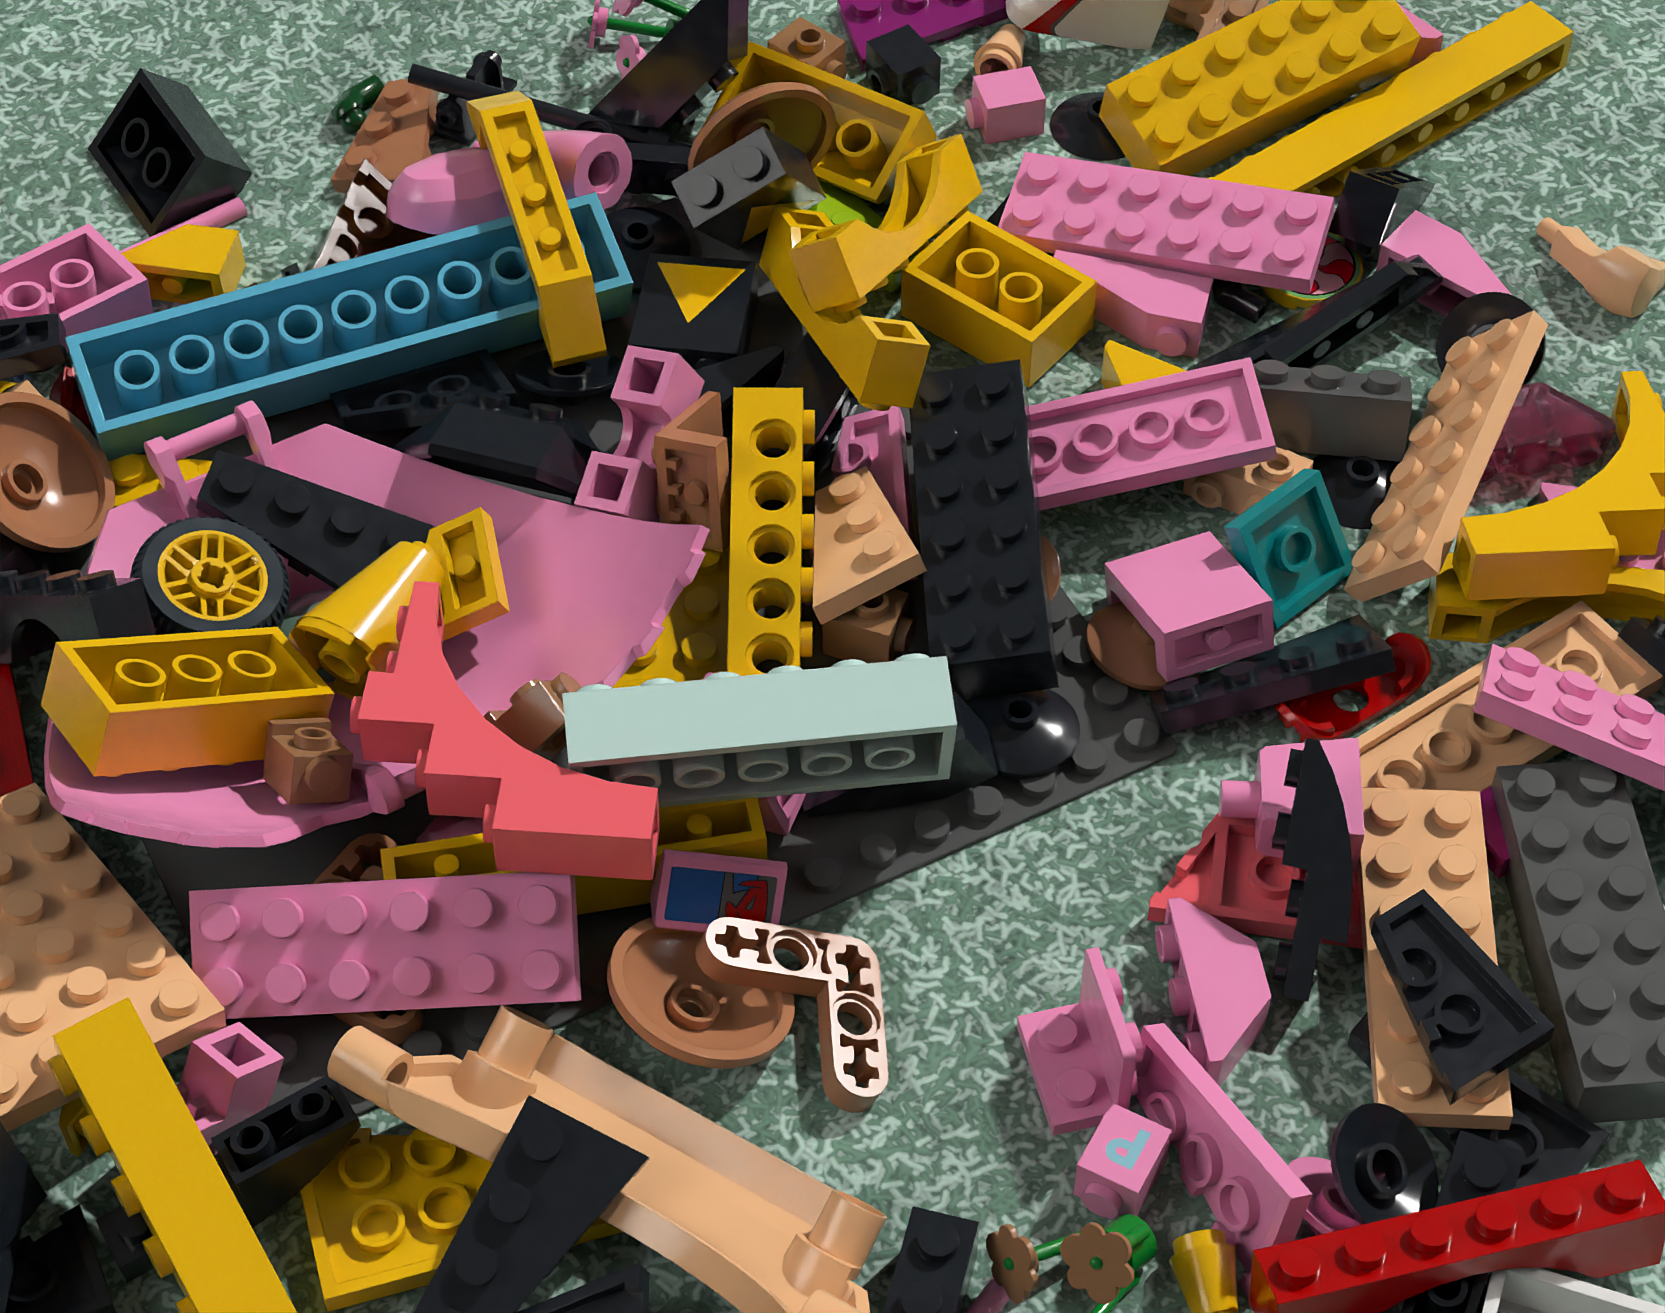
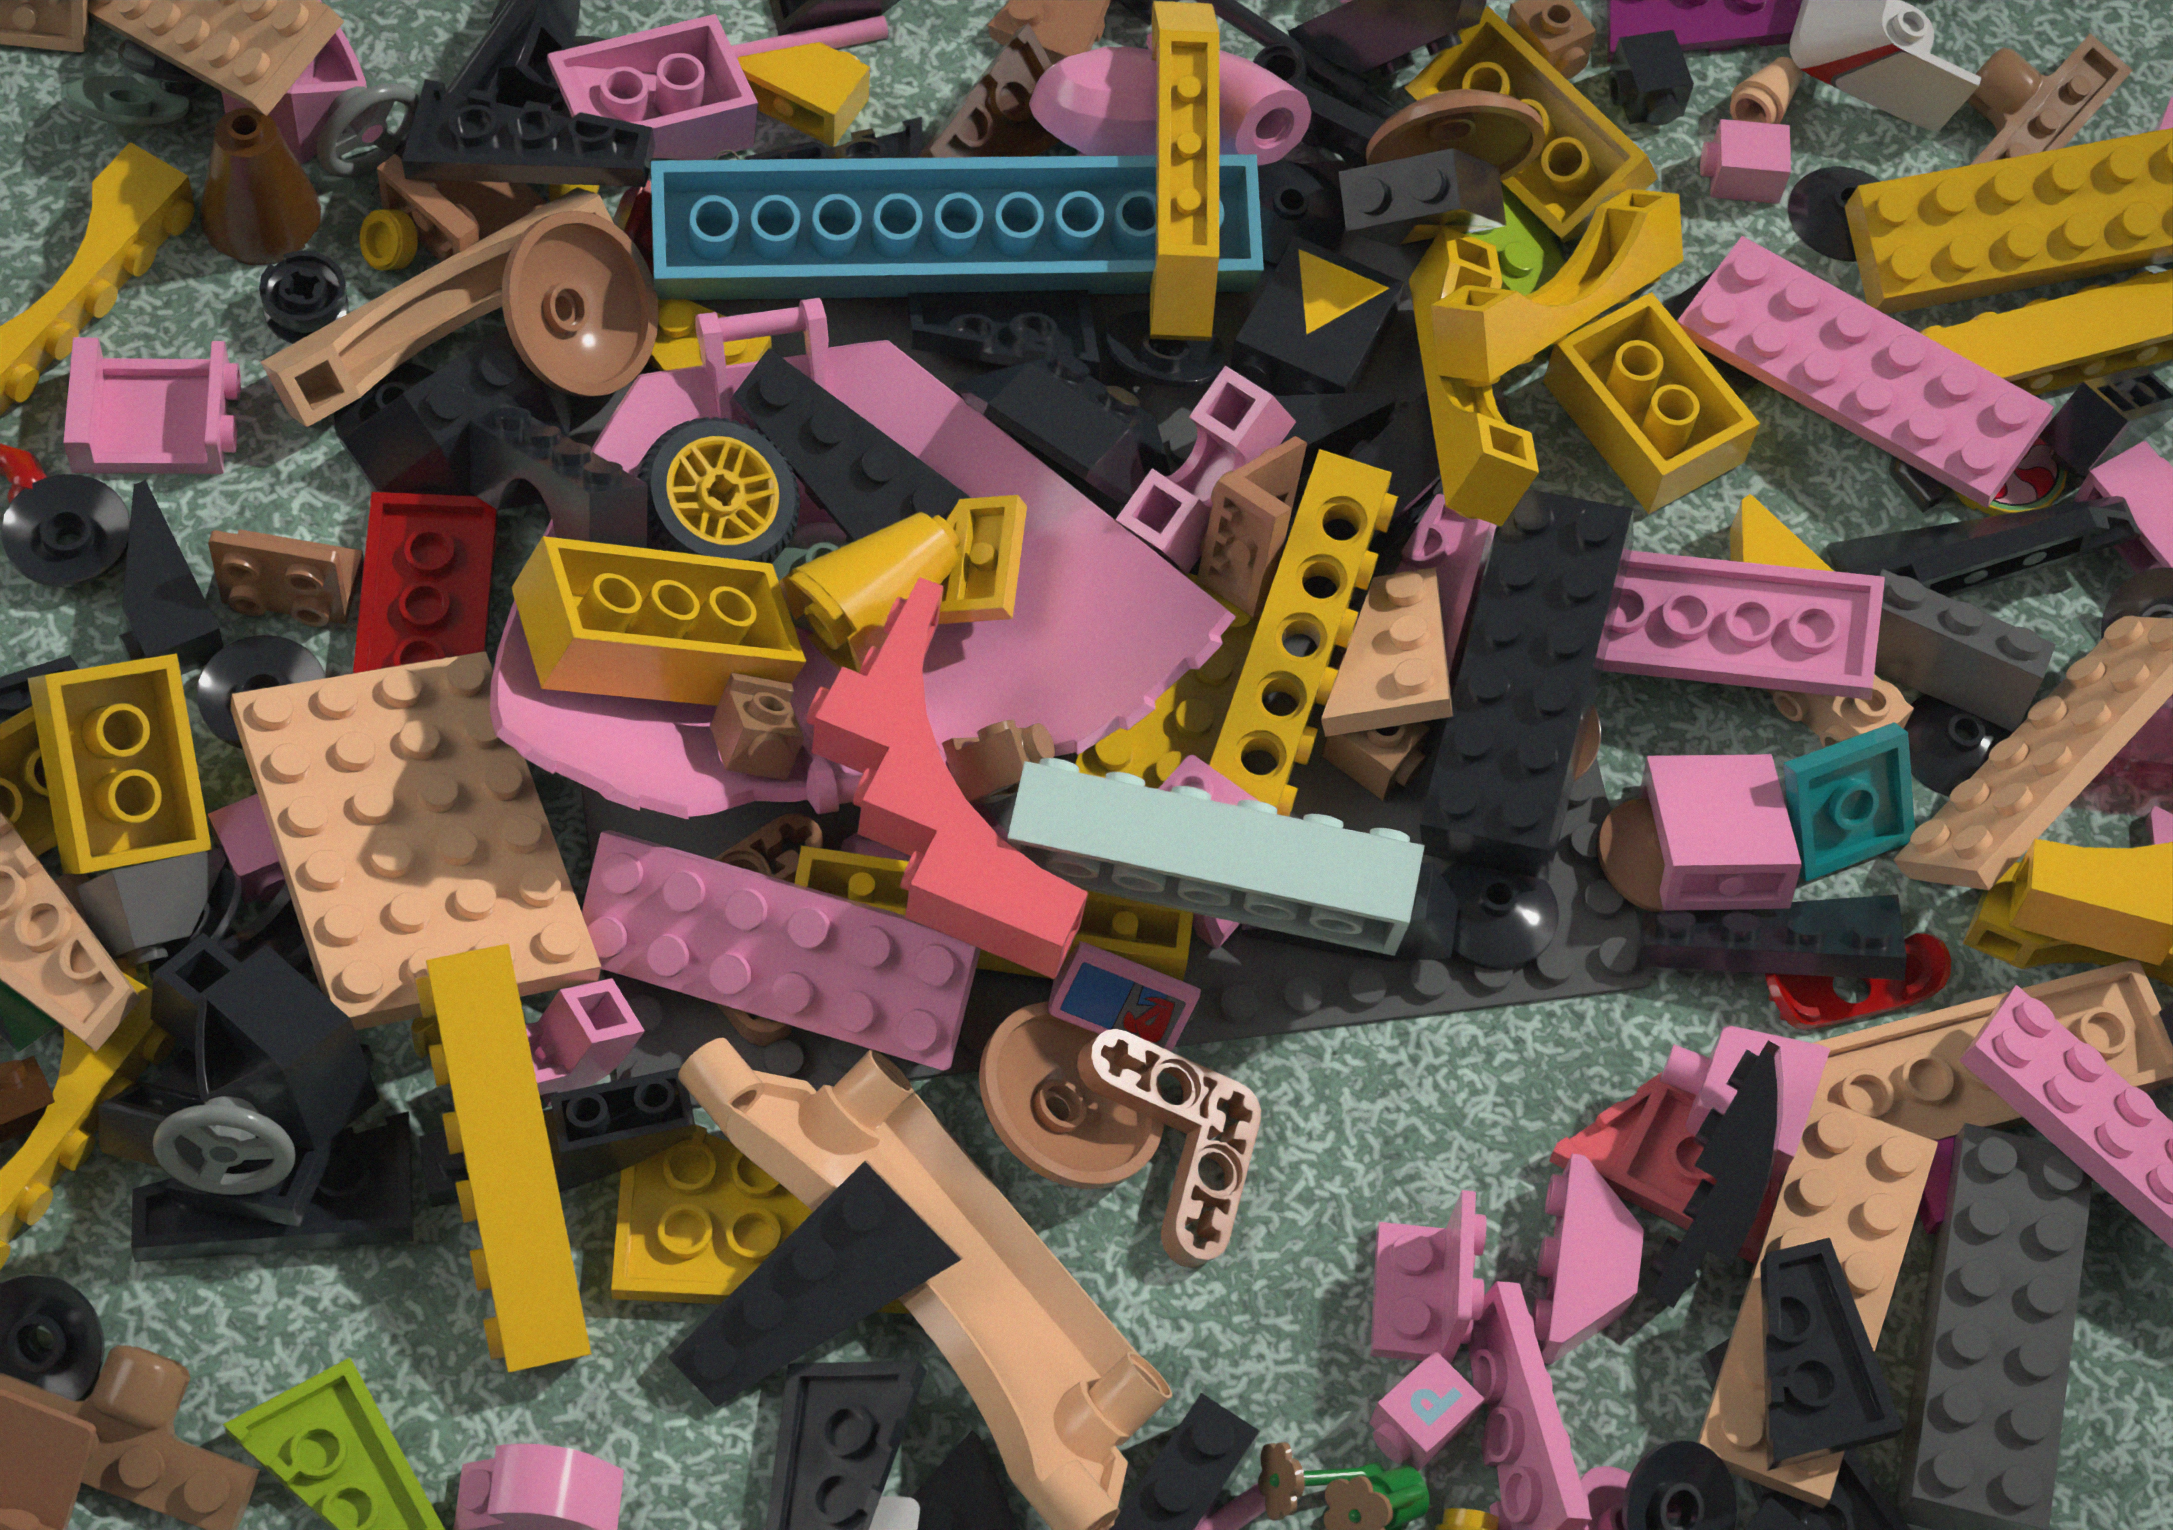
camera: 10 degrees right, 10 degrees up
(1147, 303) = (1808, 456): bright pink slope -> none

